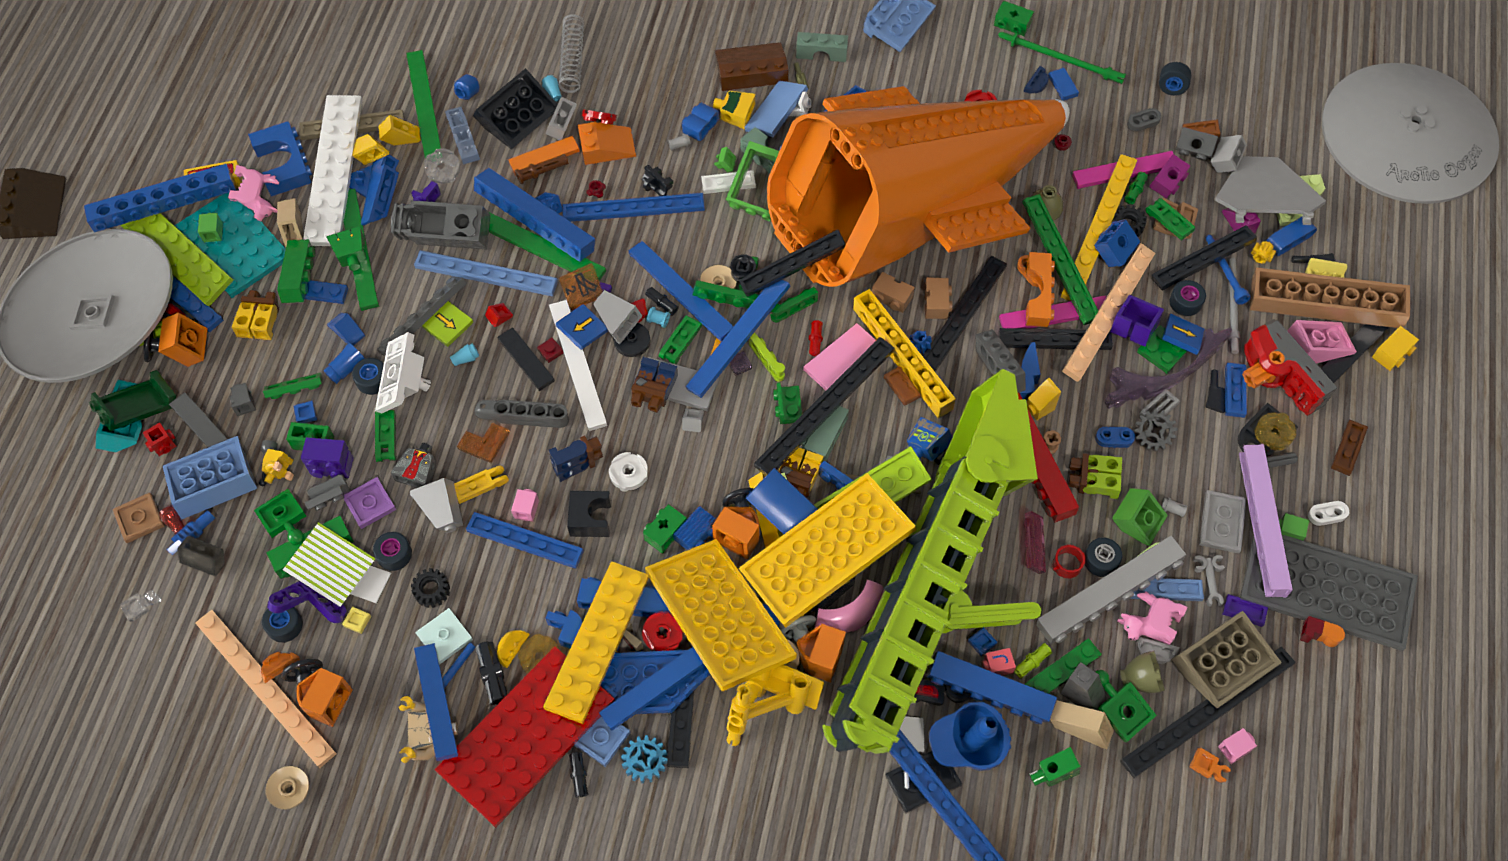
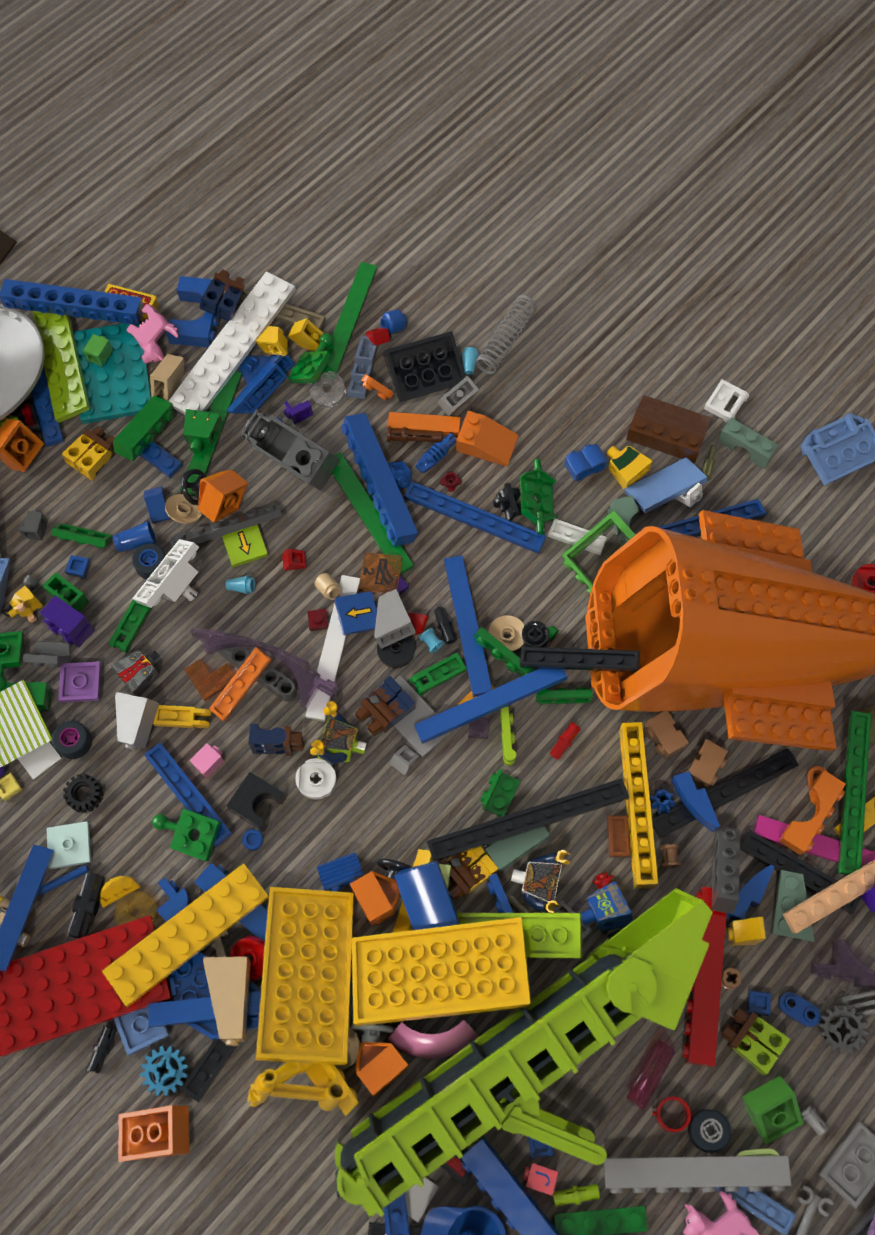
camera: 30 degrees right, 5 degrees up
(301, 124) = (224, 288): none -> dark blue hips
(374, 319) = (181, 510): none -> tan dish
(399, 289) = (215, 494): none -> orange piece
(415, 153) = (312, 362): none -> green plate
(460, 104) = (378, 336): none -> red slope
(486, 273) = (307, 514): medium blue tile -> none
(490, 144) = (383, 392): none -> orange plate
(517, 429) = (240, 684): none -> orange tile
(526, 359) = (291, 617): black tile -> none
(540, 560) = (182, 838): none -> green plate
(543, 318) = (328, 586): none -> tan brick
(569, 173) = (435, 454): none -> blue hinge
(572, 397) = (307, 681): none -> clear purple slope
(594, 115) = (497, 413): red plate -> none
(604, 546) = (252, 840): none -> blue tile
(628, 429) = (338, 738): none -> torso
(663, 538) = (303, 857): green brick -> none
(663, 661) = (229, 994): none -> tan slope
(665, 811) = (154, 1133): none -> orange slope
(676, 165) = (540, 485): none -> green plate
(678, 142) = (556, 473): light grey pin -> none
(726, 160) = (587, 514): bright green tile -> none
(779, 23) = (721, 398): none -> white plate
(839, 356) = (577, 773): bright pink tile -> none
(862, 447) = (541, 880): none -> torso
(910, 423) = (603, 880): none -> red plate
(946, 327) = (695, 800): none -> blue slope
(951, 378) = (670, 856): none -> medium nougat bush
(1057, 356) = (790, 893): none -> sand green wing
(1082, 446) = (759, 1002): none -> blue tile

